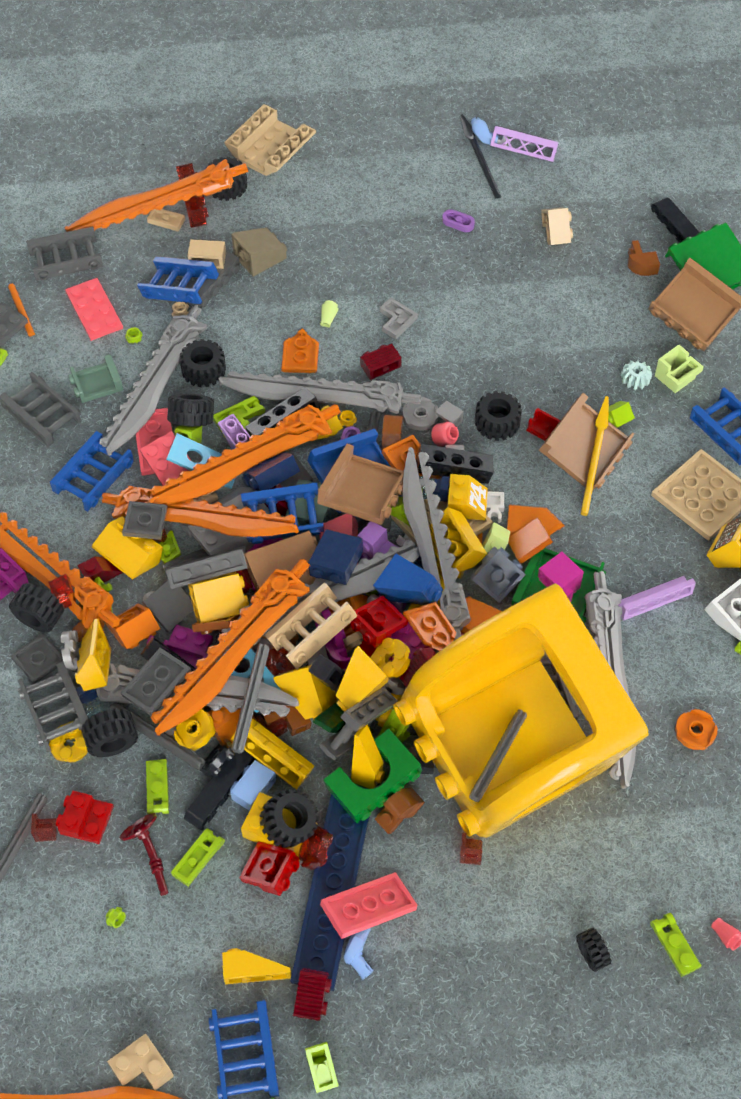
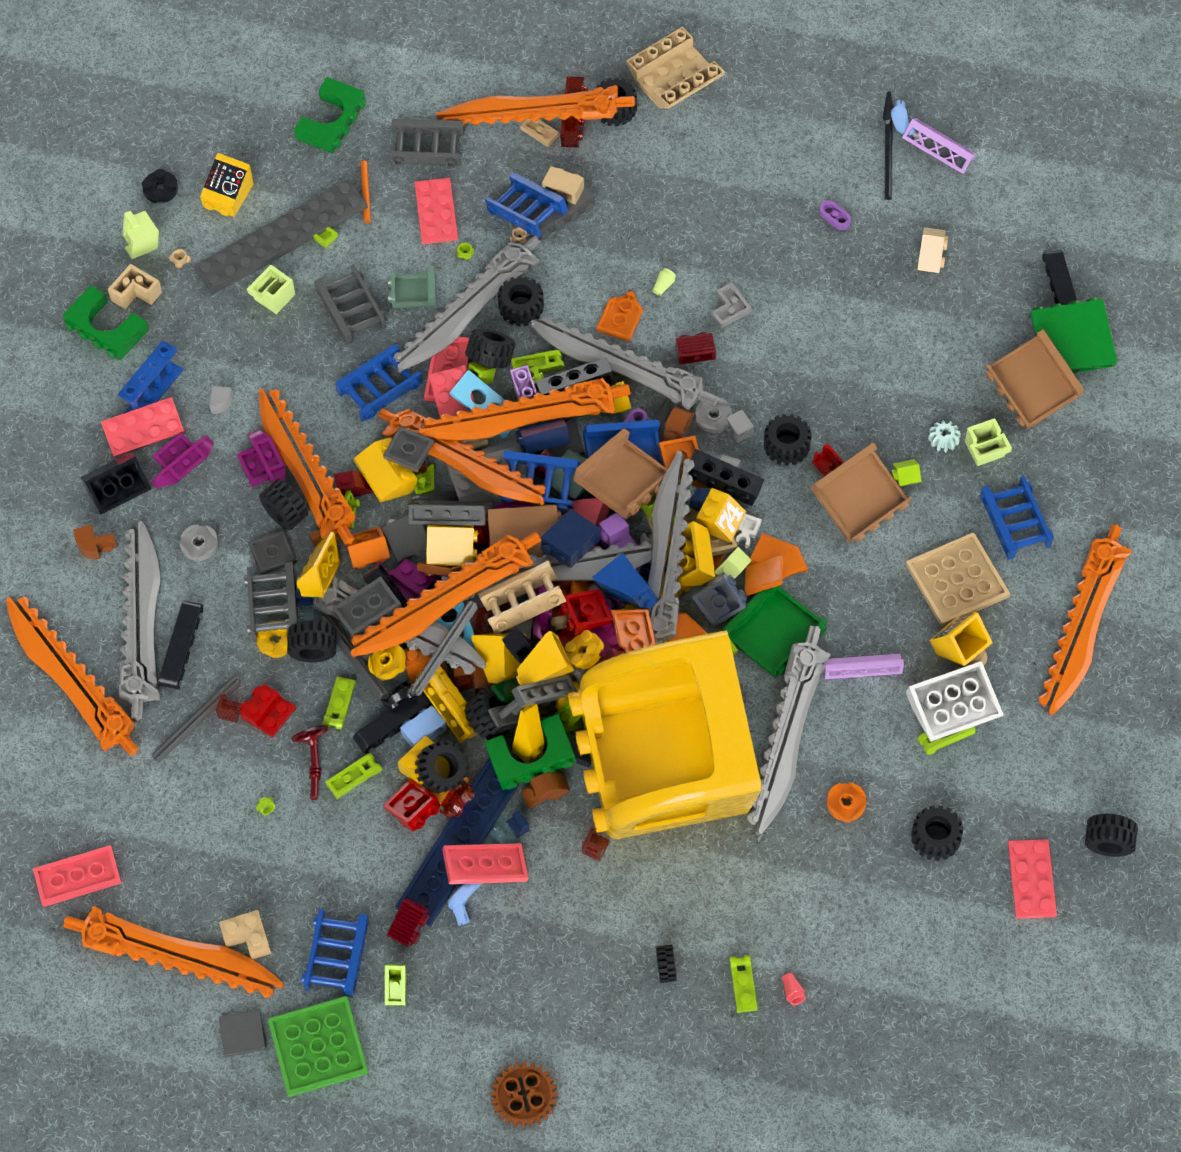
camera: 20 degrees right, 5 degrees up
(61, 588) = (310, 494): clear red plate -> none
(71, 651) = (302, 553): light grey plate -> none
(246, 967) = (360, 882): yellow slope -> none
(258, 249) = (618, 192): dark tan slope -> none
(308, 753) = (479, 717): none -> black tyre
(347, 414) = (641, 395): yellow plate -> none
(379, 861) = (510, 829): none -> leg
(444, 434) = (727, 443): coral head -> none
(498, 756) = (646, 768): dark grey axle -> none
(562, 572) = (778, 620): dark pink plate -> none
(601, 424) = (882, 479): yellow piece -> none
(642, 263) = (1003, 316): dark orange brick -> none

